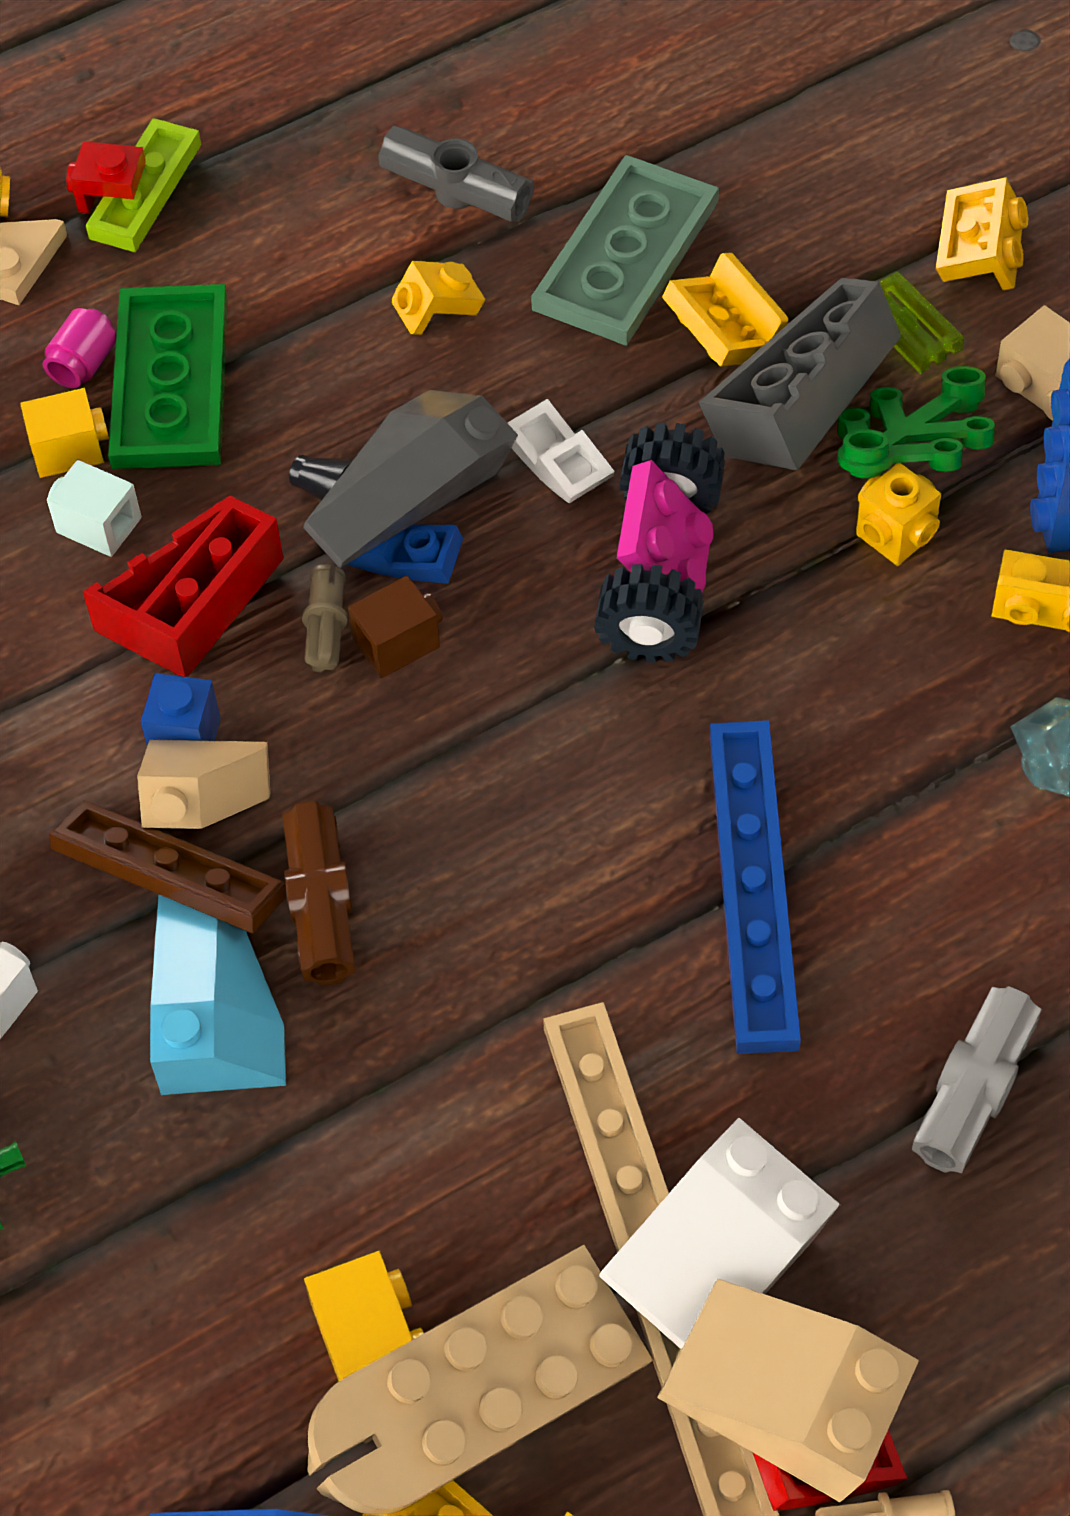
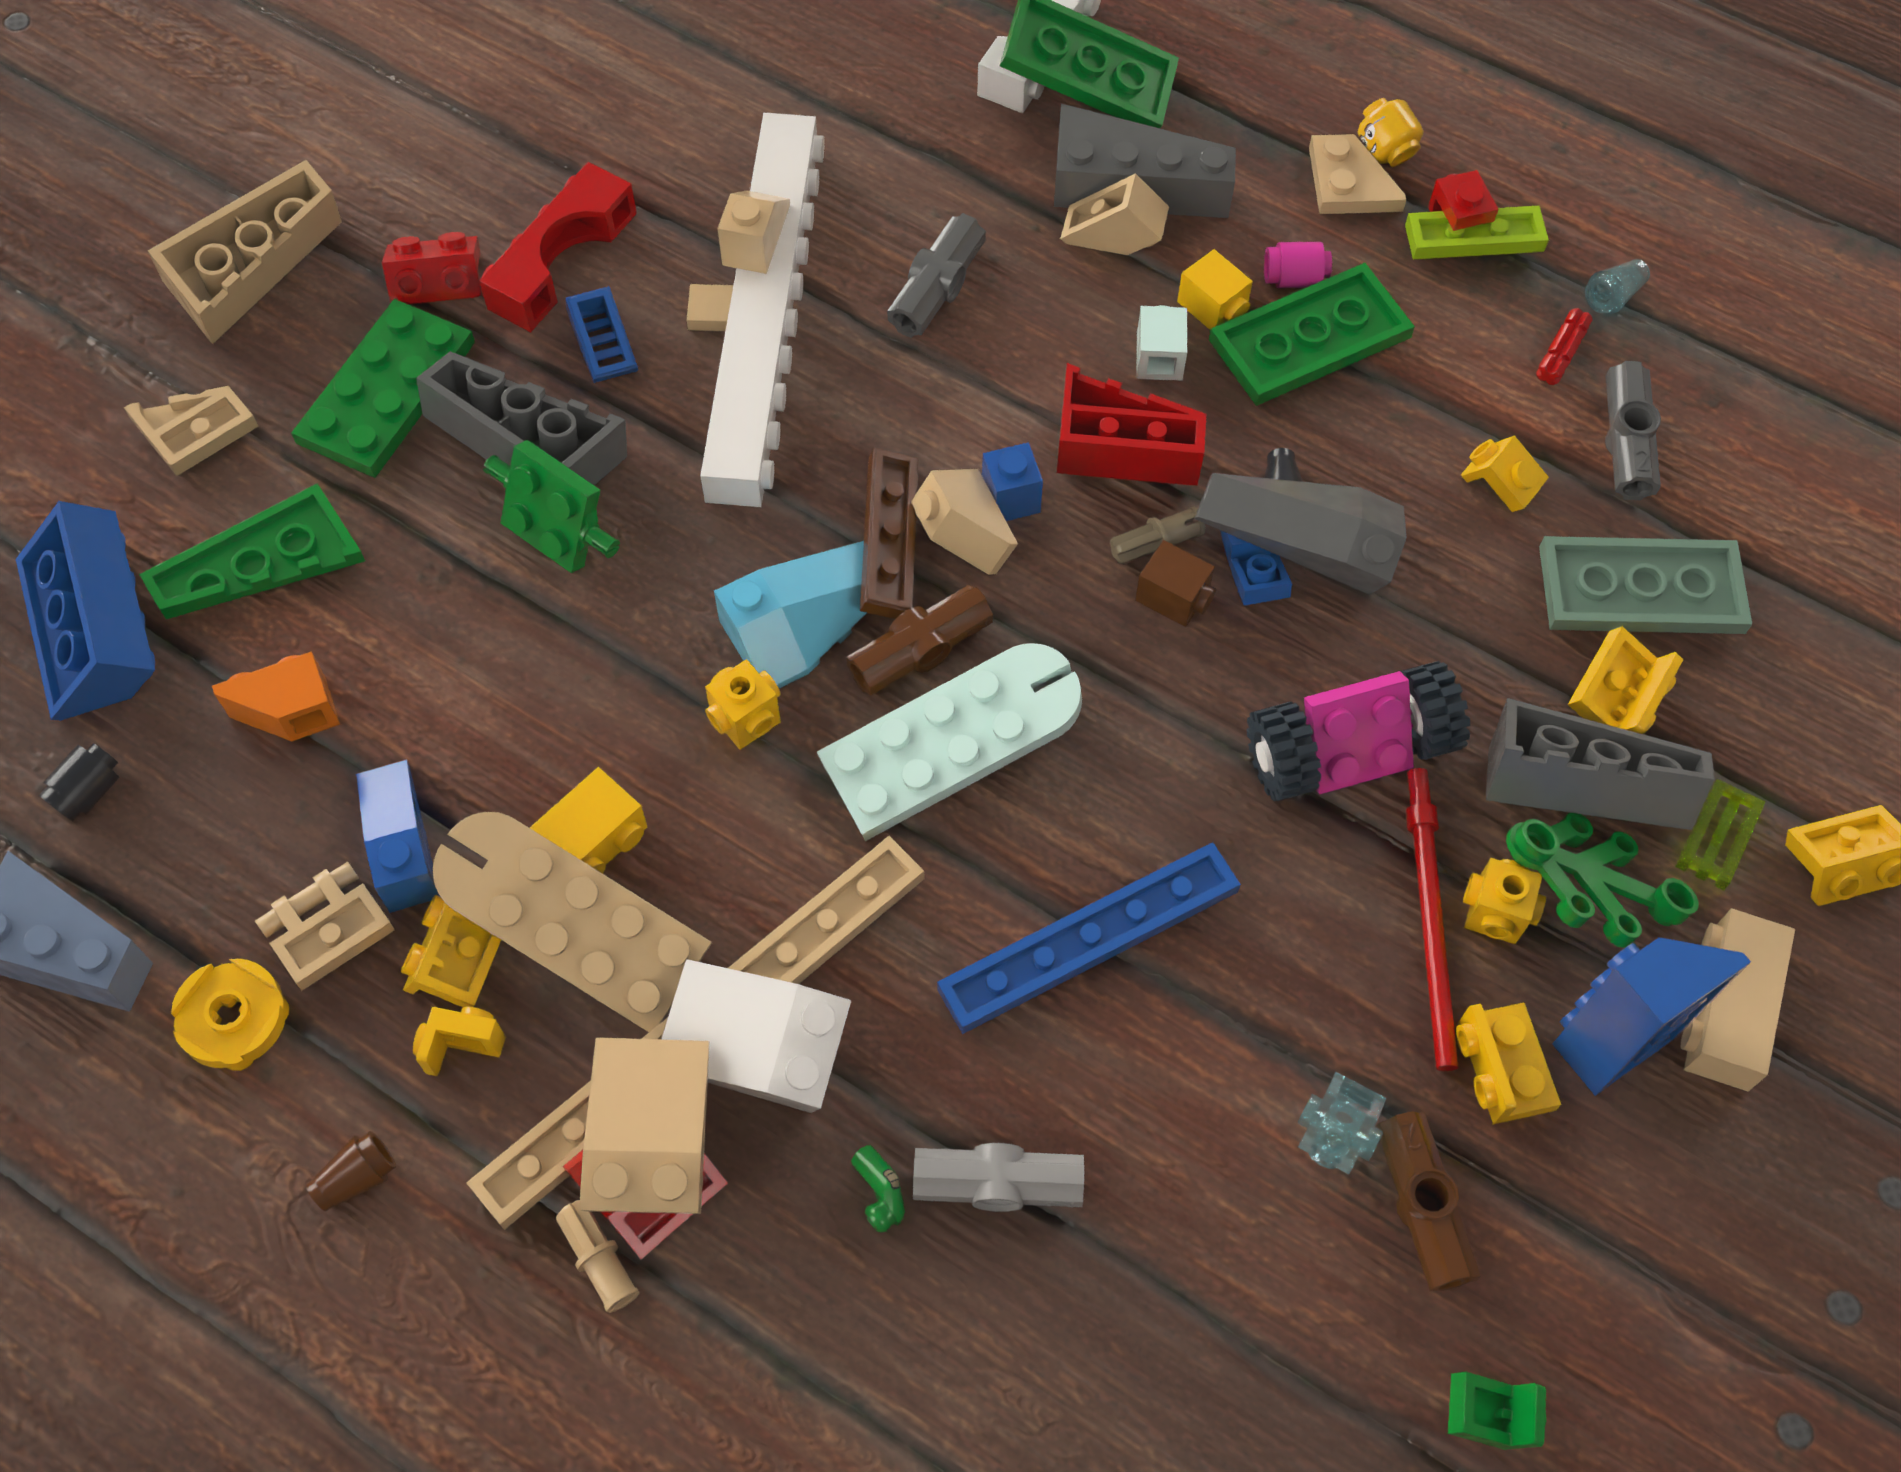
camera: 60 degrees right, 5 degrees up
(285, 109) = (1616, 286): none -> clear light blue cone
(299, 1099) = (743, 703): none -> yellow brick
(323, 181) = (1564, 346): none -> red axle
(457, 912) = (953, 736): none -> light aqua plate
(558, 455) = (1411, 624): white slope -> none
(774, 542) = (1422, 823): none -> red bar
(938, 1191) = (886, 1186): none -> green arm

